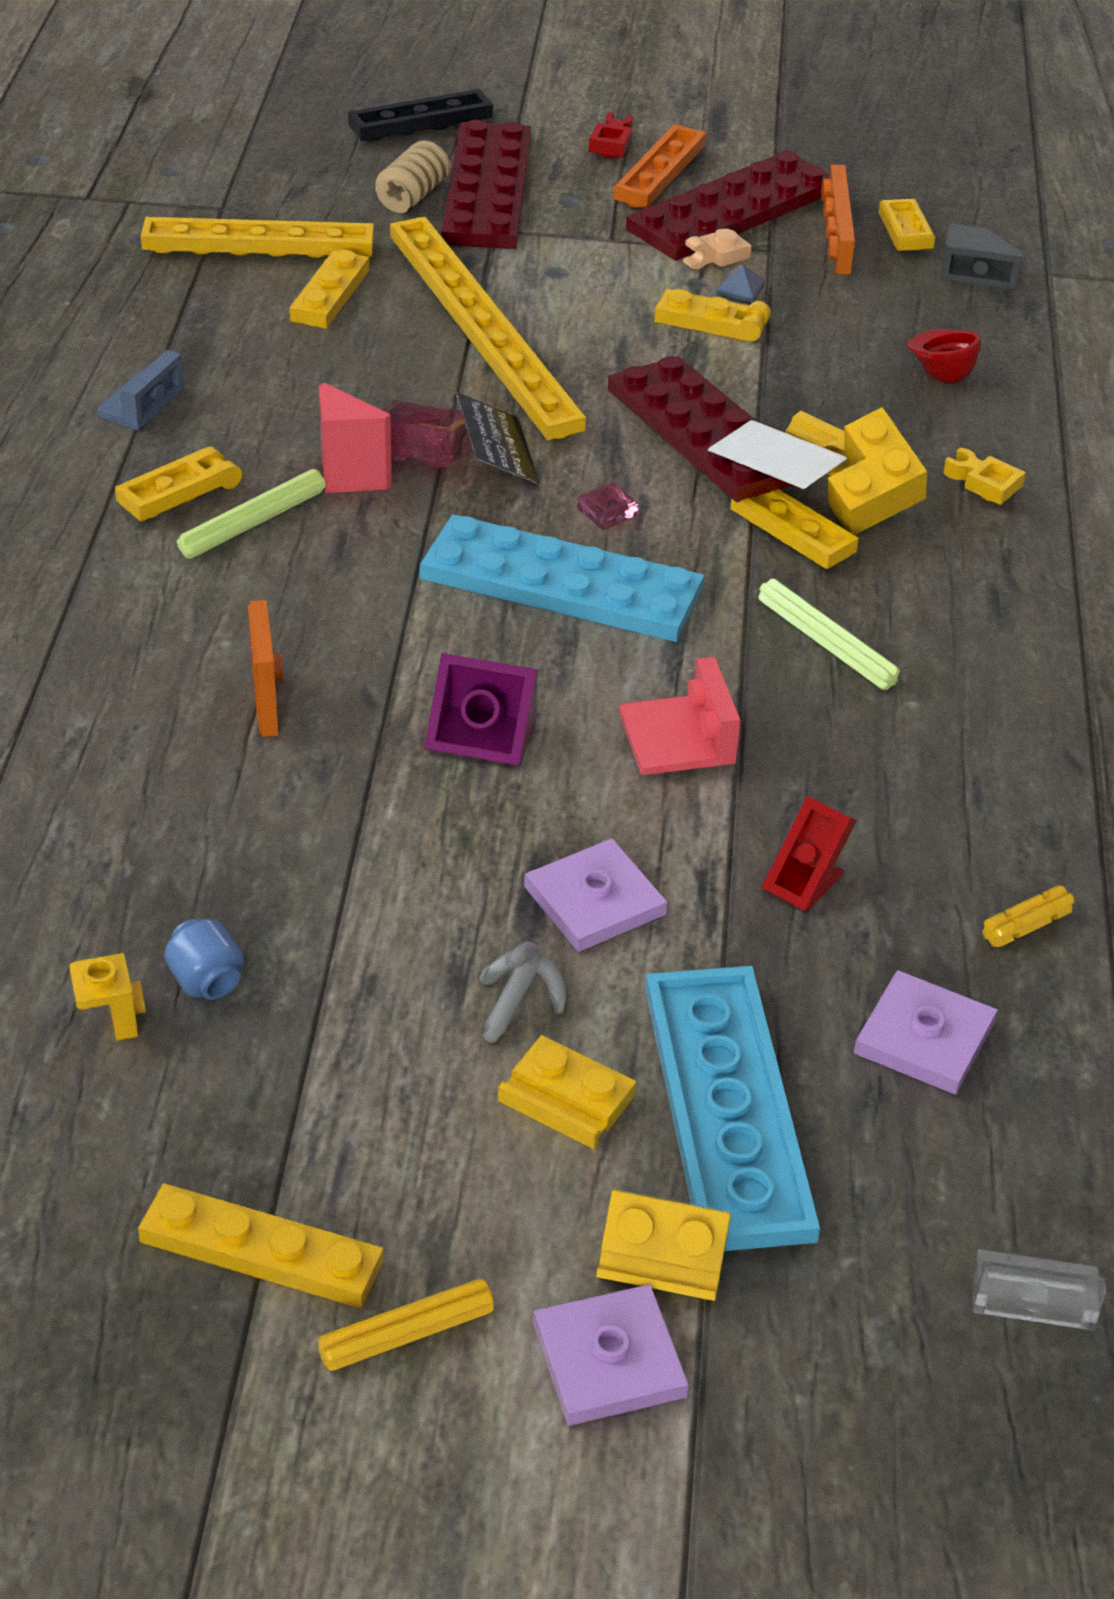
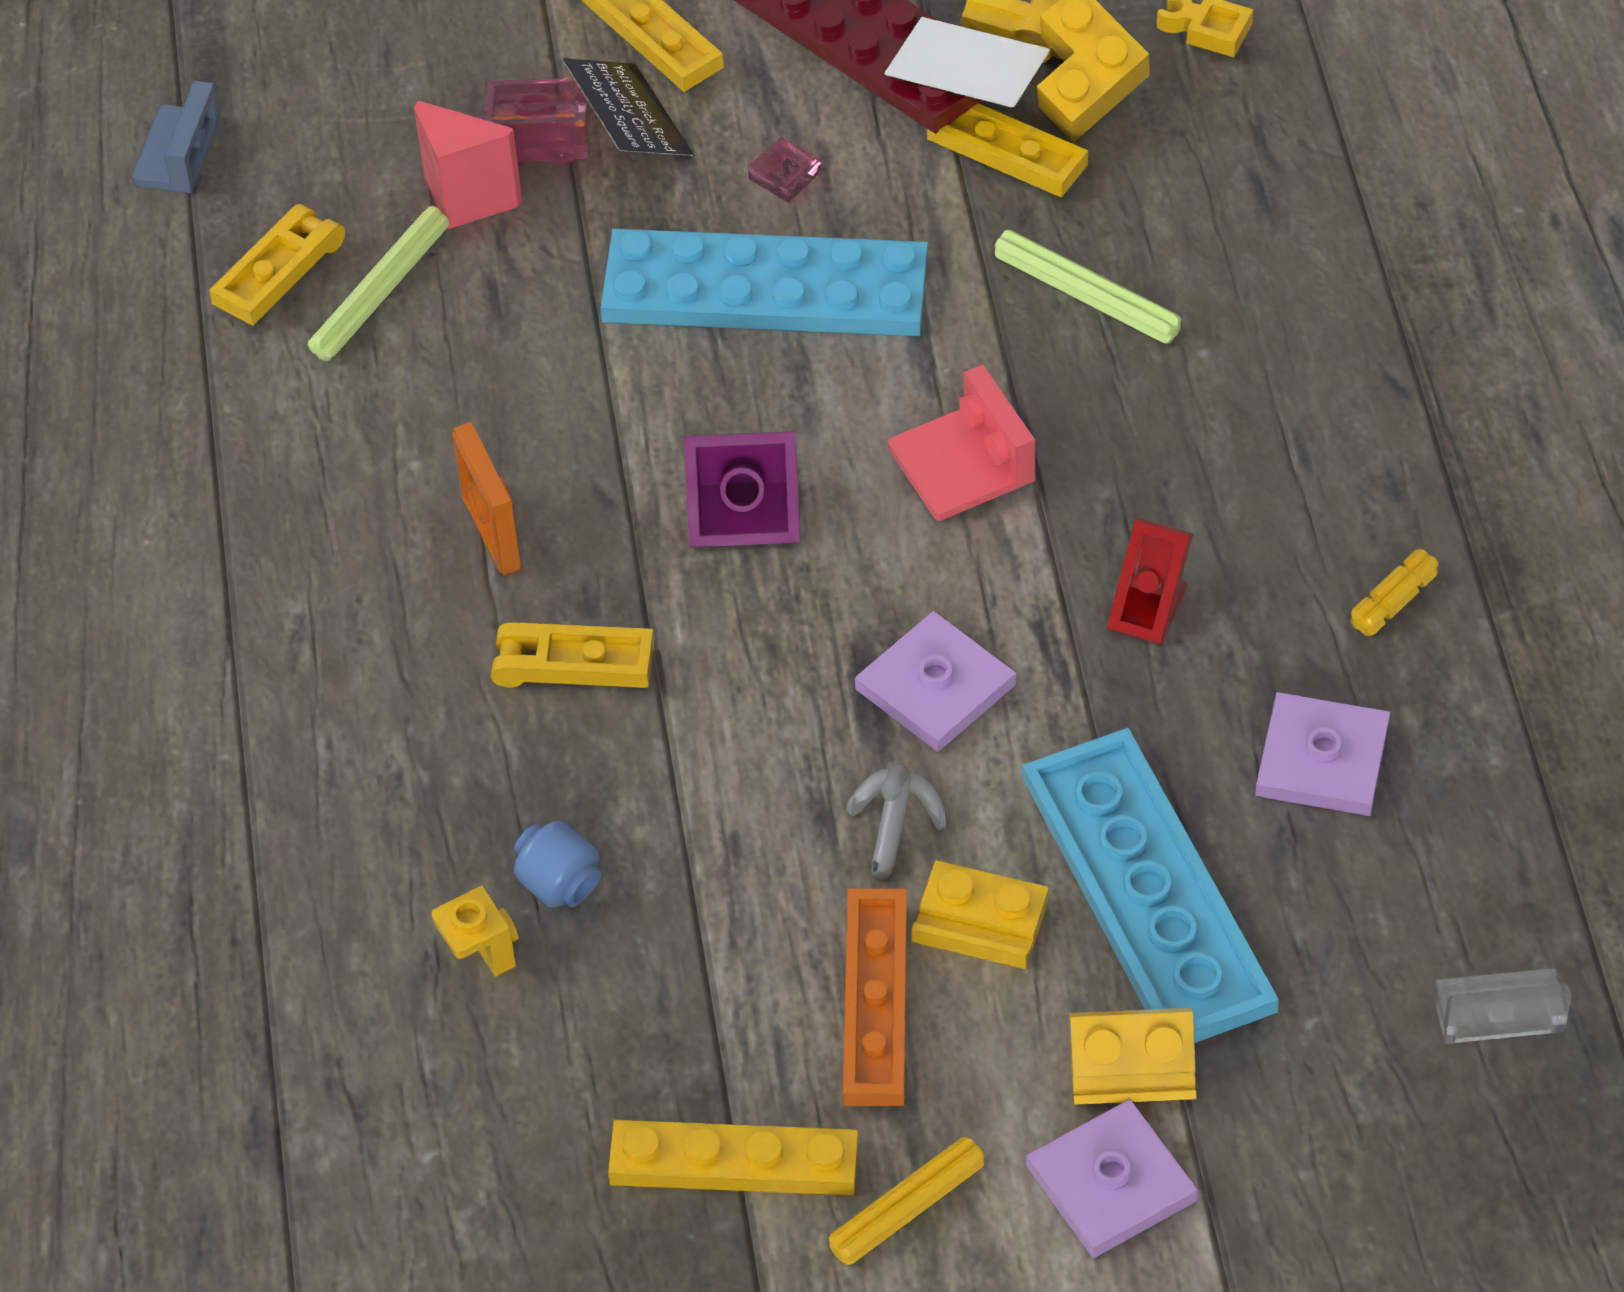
camera: 10 degrees left, 10 degrees up
(291, 803) = (572, 655): none -> yellow plate
(442, 1138) = (875, 998): none -> orange plate

